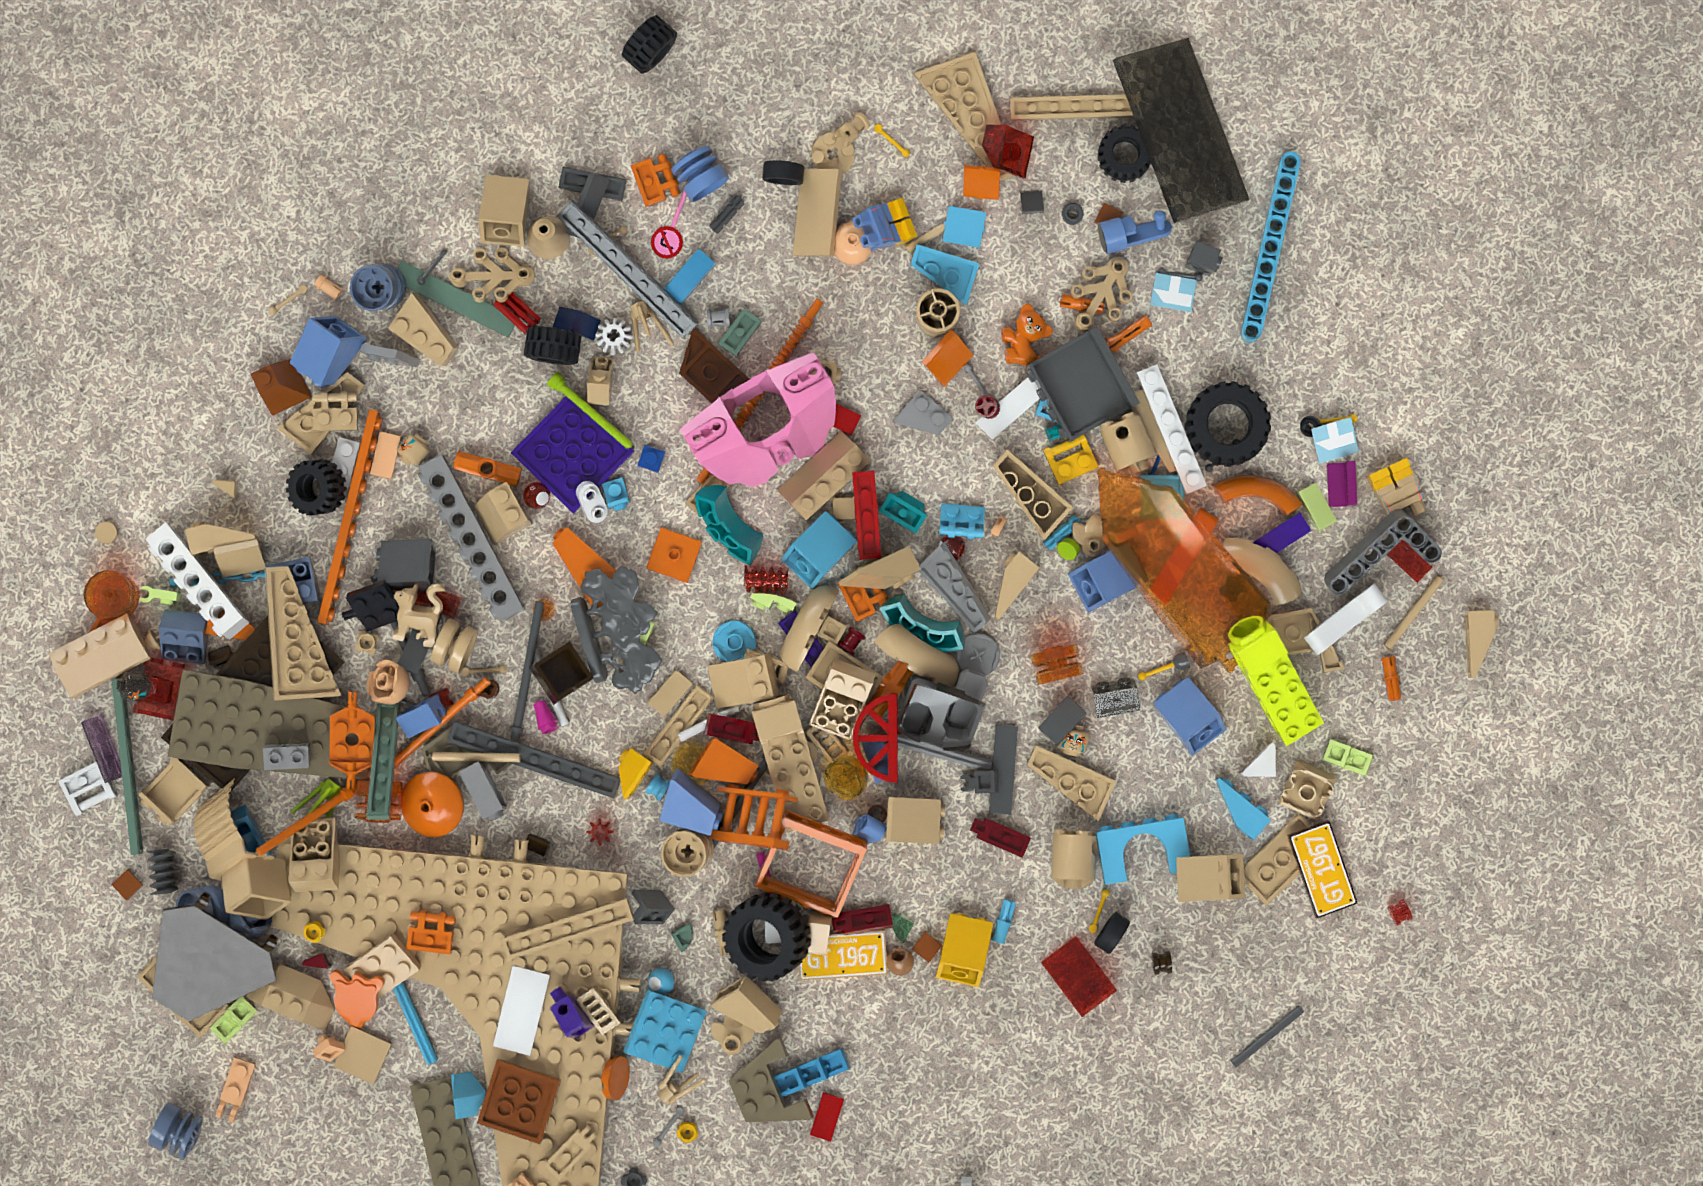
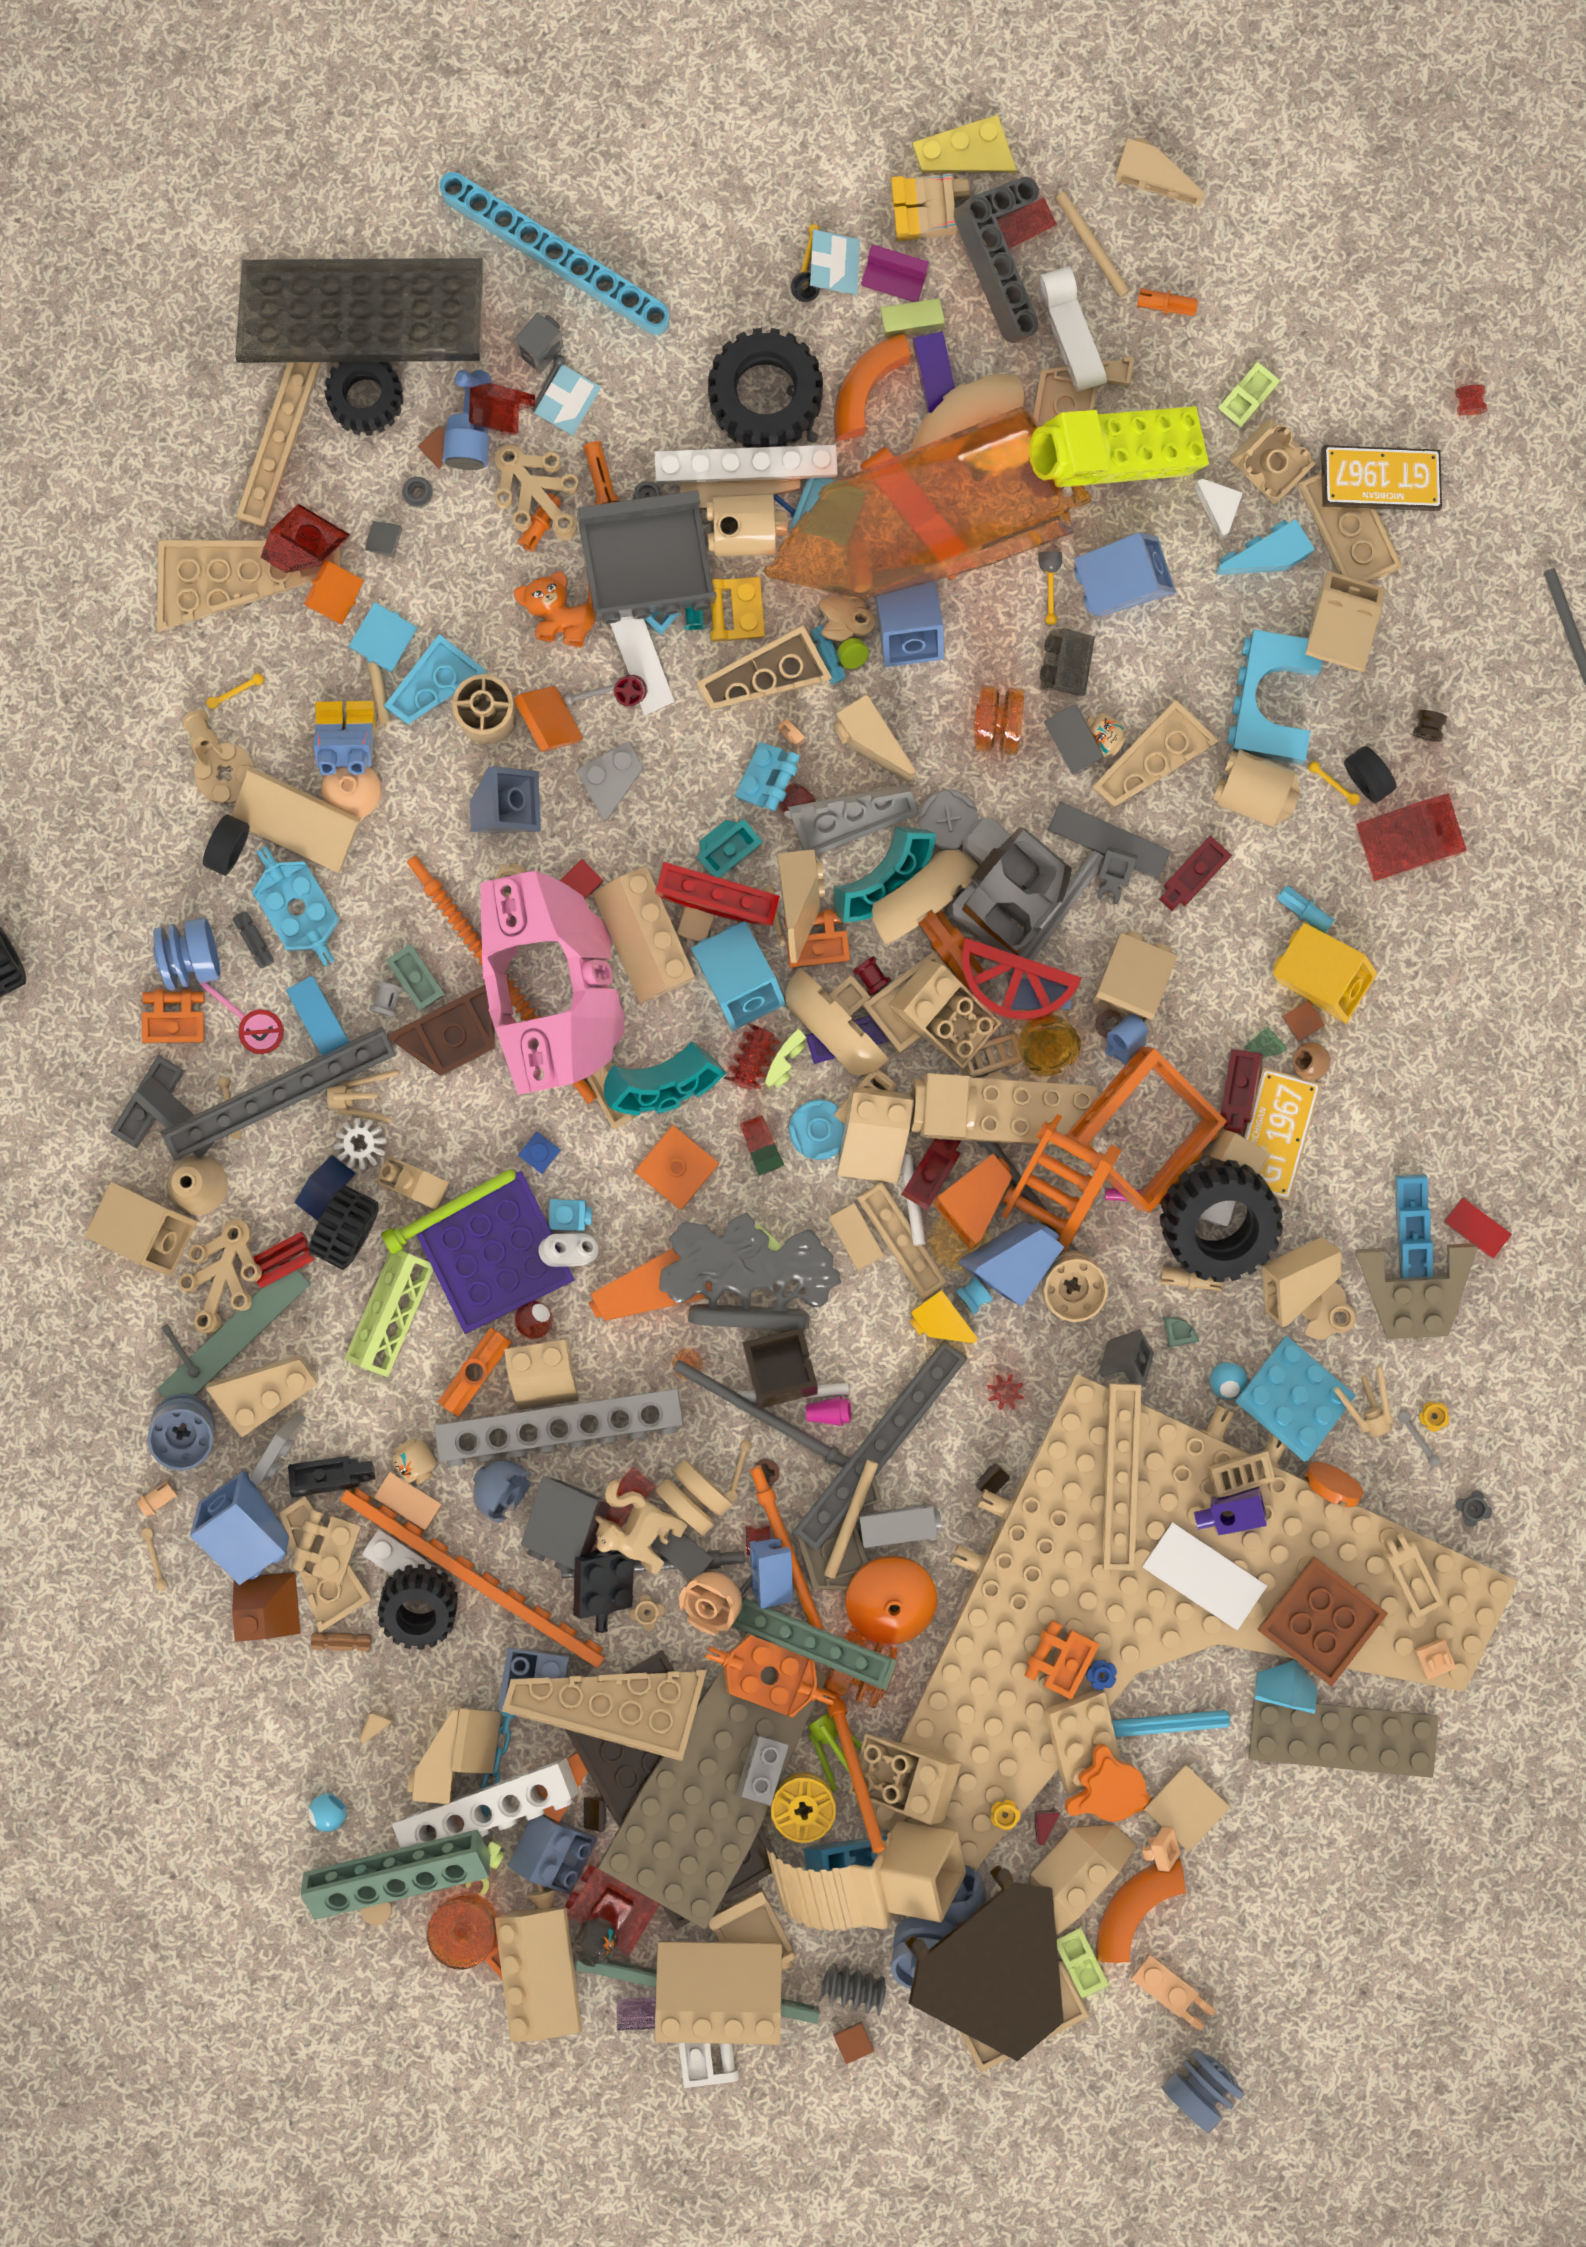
camera: 80 degrees left, 0 degrees up
(128, 780) = (718, 1992): none -> tan slope
(132, 537) = (396, 1874): none -> sand green brick
(158, 476) = (327, 1812): none -> medium azure piece
(275, 444) = (341, 1641): none -> medium nougat axle
(283, 799) = (815, 1793): none -> yellow wheel
(283, 1039) = (1131, 1905): none -> orange brick
(383, 396) = (328, 1475): none -> black hinge
(411, 511) = (499, 1487): none -> sand blue cylinder
(436, 962) = (1098, 1667): none -> blue plate
(507, 392) = (384, 1310): none -> yellowish green fence
(709, 606) = (761, 1145): none -> leg
(768, 219) = (293, 881): none -> medium azure plate
(881, 350) = (506, 802): none -> sand blue slope
(1130, 365) = (646, 487): none -> dark grey plate
(1148, 247) = (498, 407): none -> clear red panel
(1449, 504) = (968, 148): none -> light yellow wing

